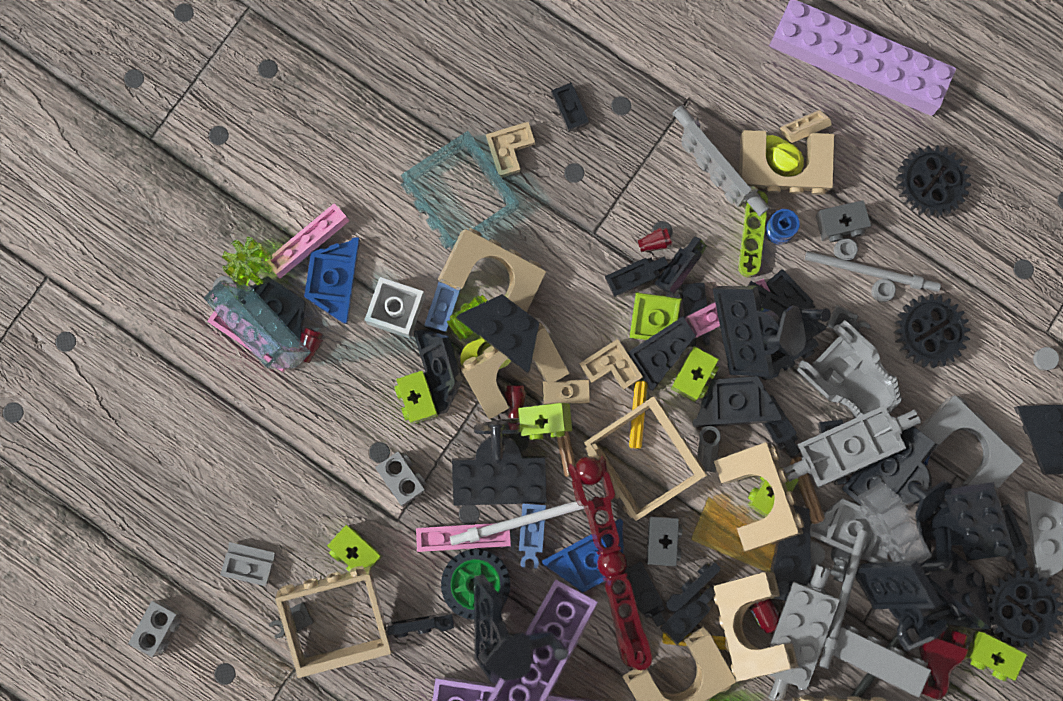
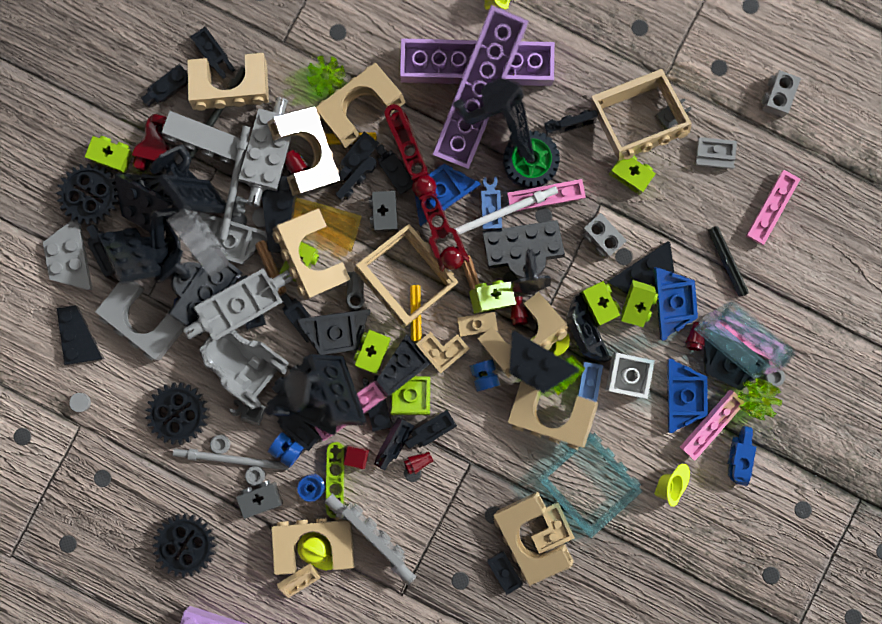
camera: 170 degrees right, 5 degrees up
(190, 488) = (773, 207): none -> bright pink plate
(255, 430) = (728, 261): none -> pearl dark grey axle
(279, 200) = (742, 457): none -> blue piece
(328, 389) = (675, 301): none -> blue wing
(354, 425) = (644, 268): none -> black wing
(364, 178) = (672, 485): none -> neon yellow piece
(372, 390) = (638, 293): none -> lime brick
(538, 111) = (533, 565): none -> tan arch
(562, 322) = (486, 382): none -> blue wheel
(726, 255) = (356, 457): none -> dark red piece
(802, 267) = (292, 452): none -> blue wheel

